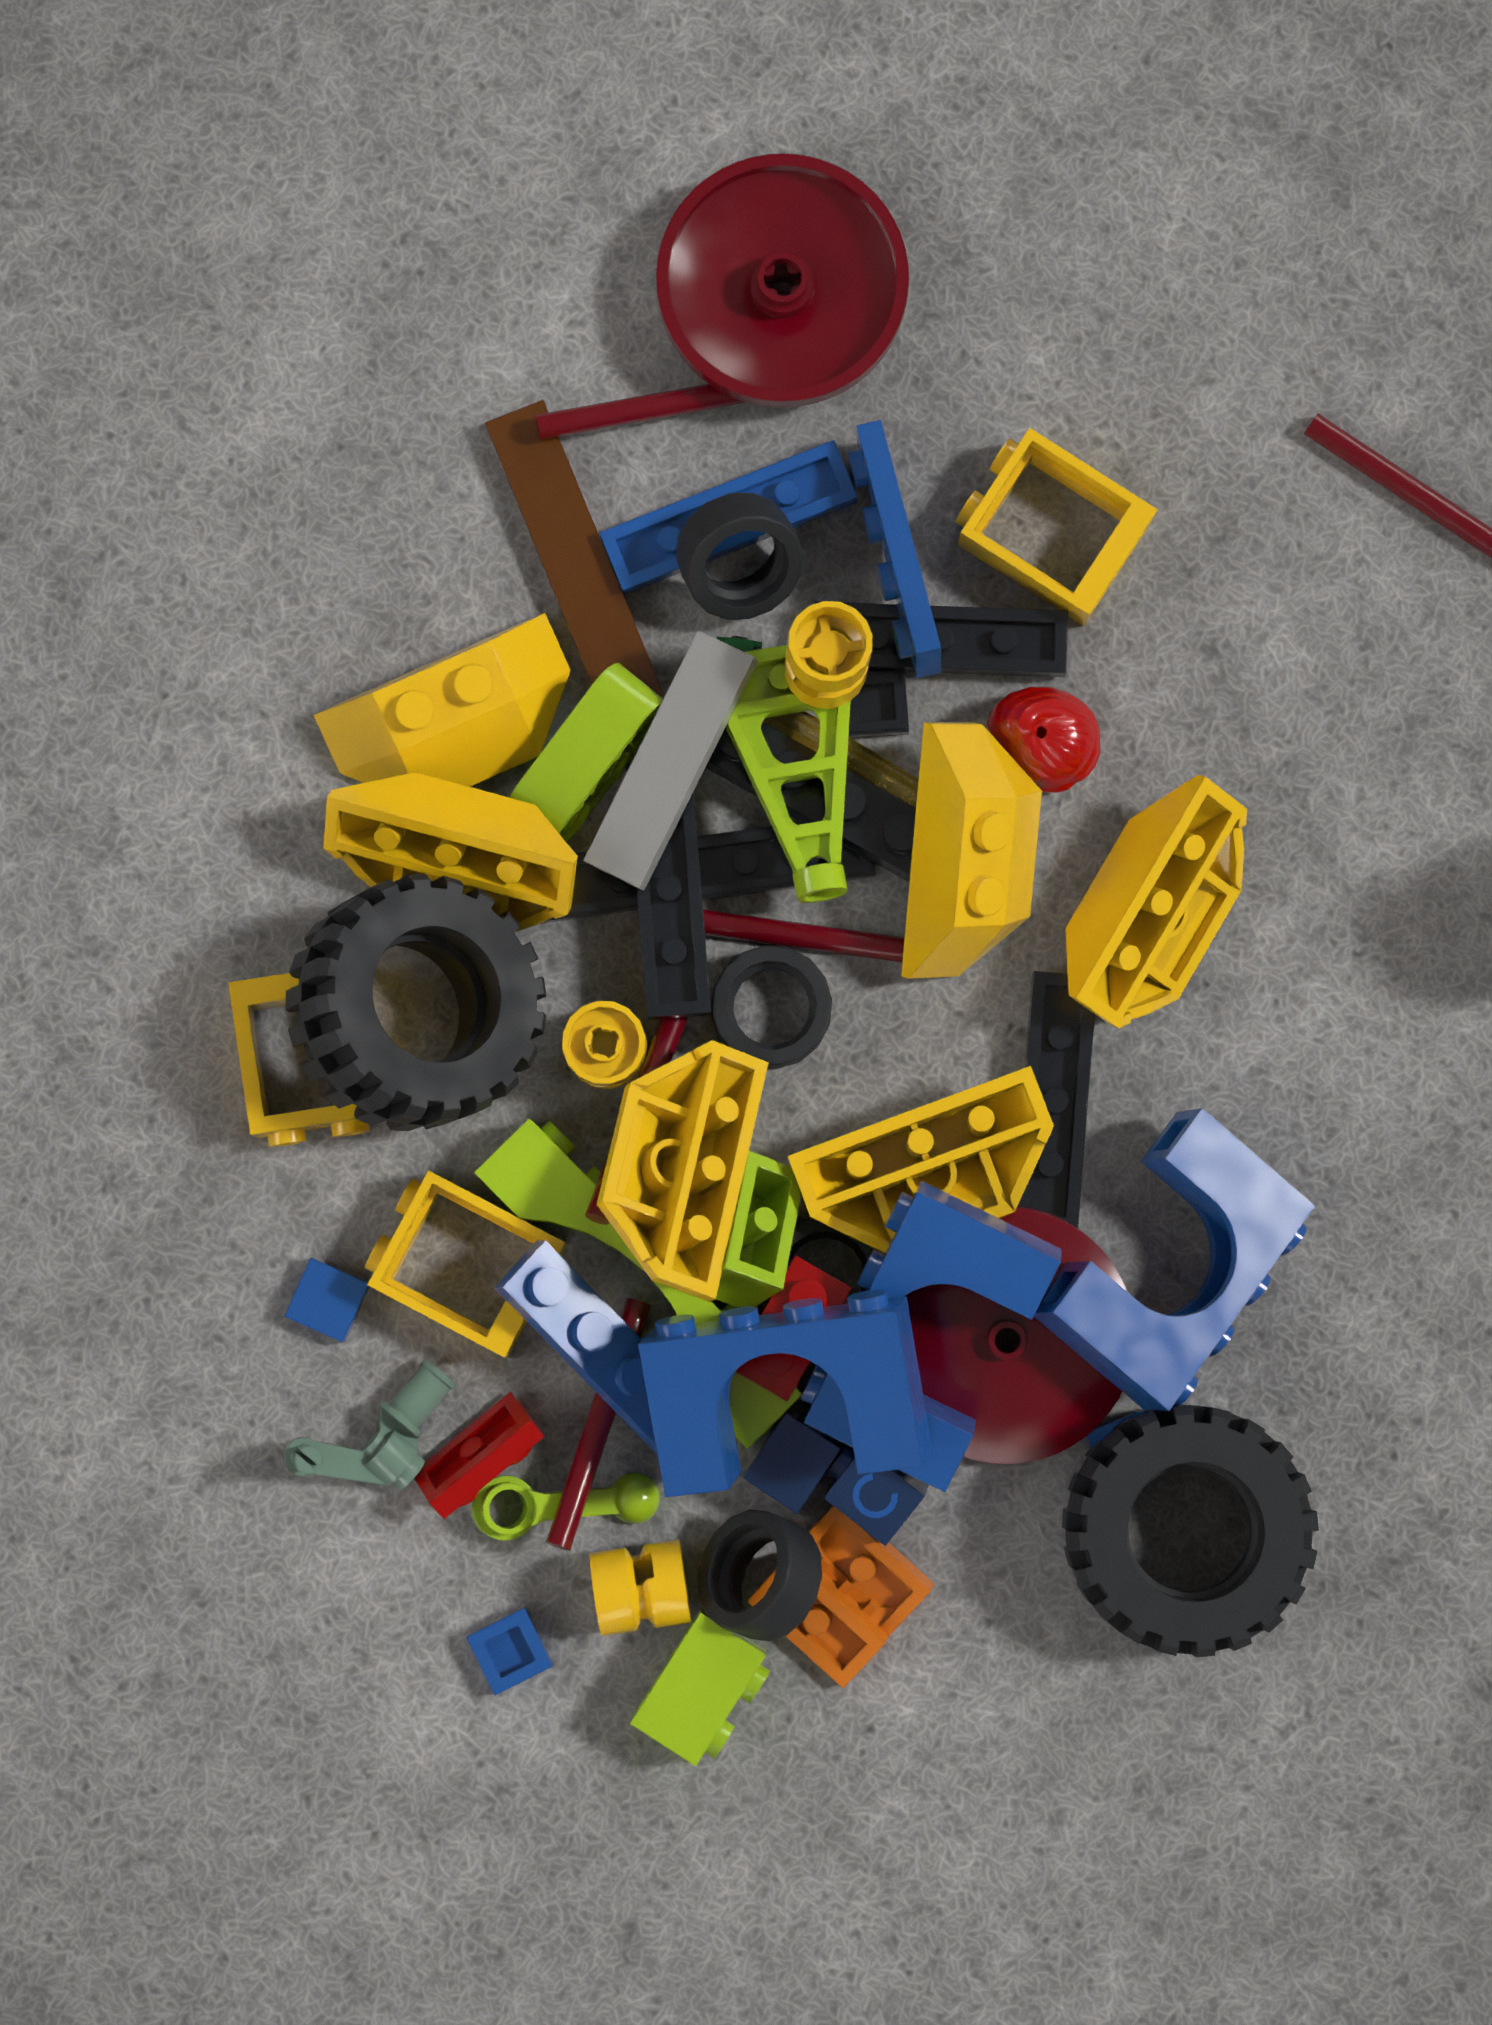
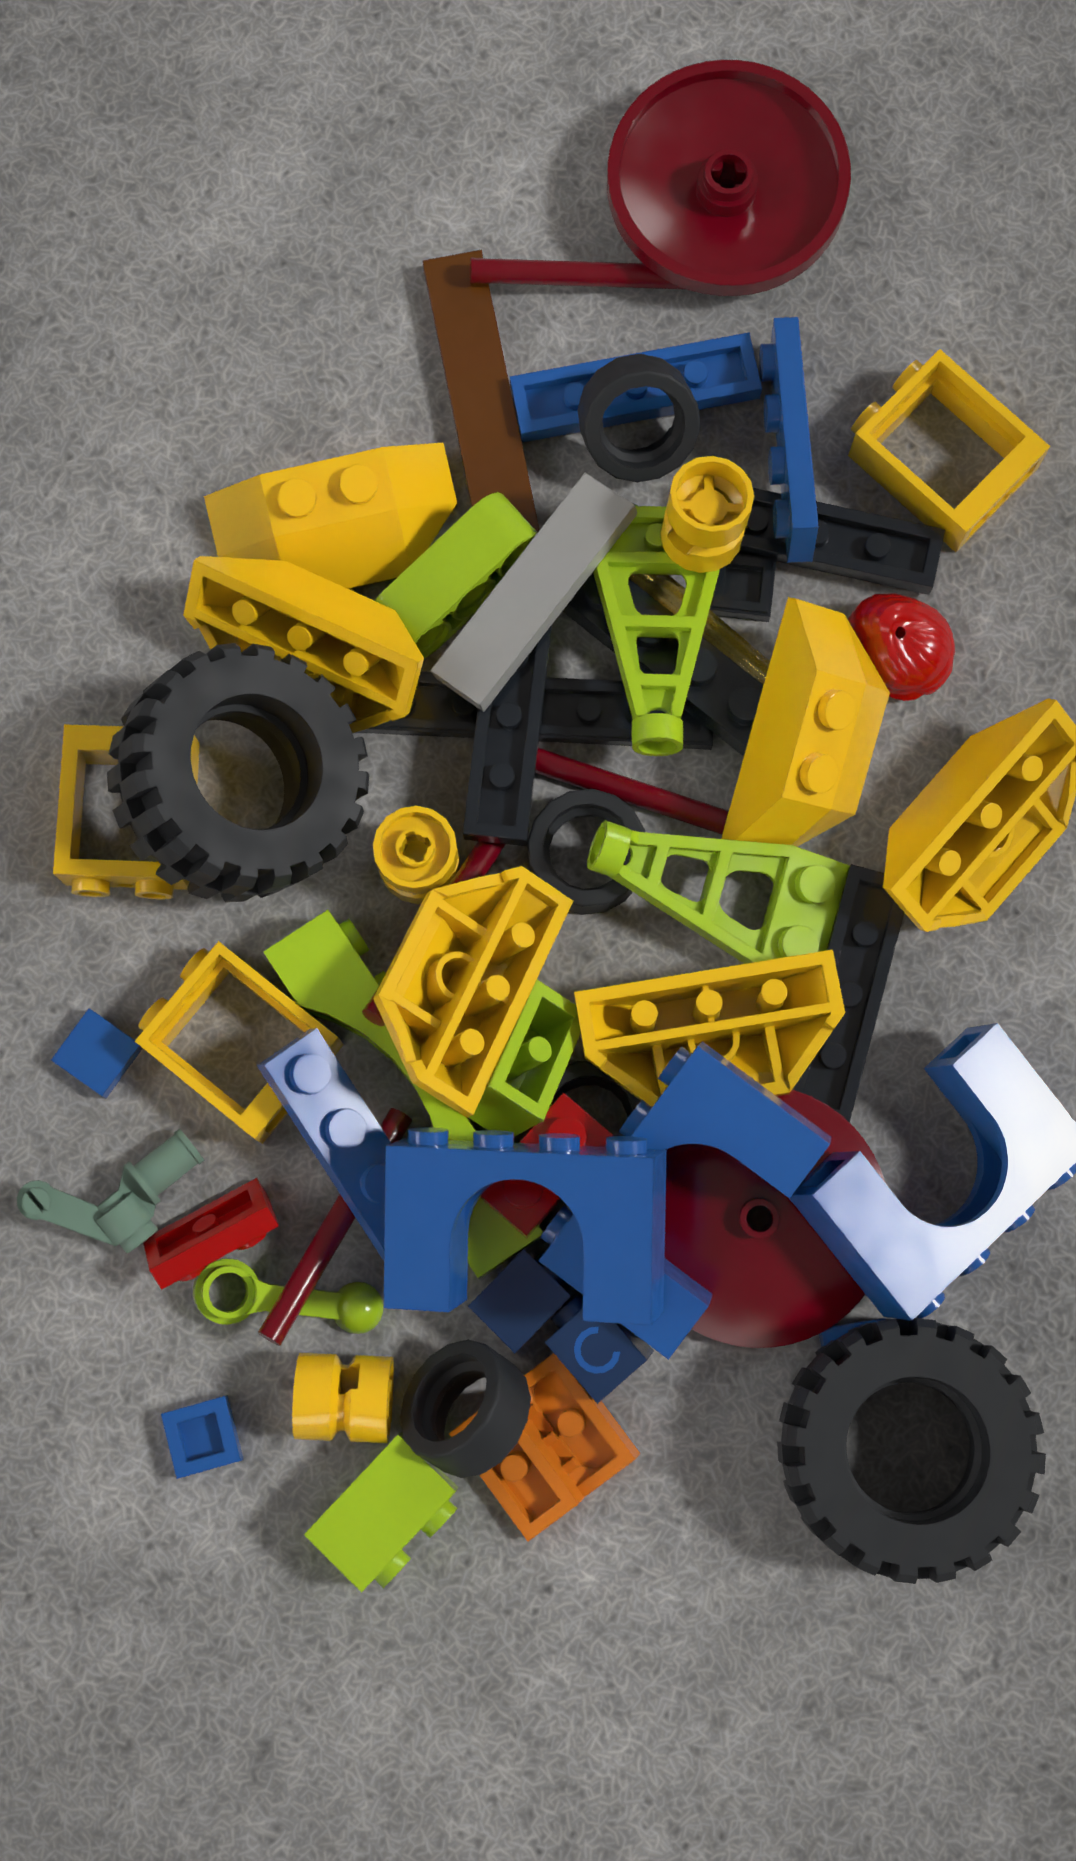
camera: 15 degrees right, 5 degrees down
(990, 1031) = (799, 907): none -> lime plate

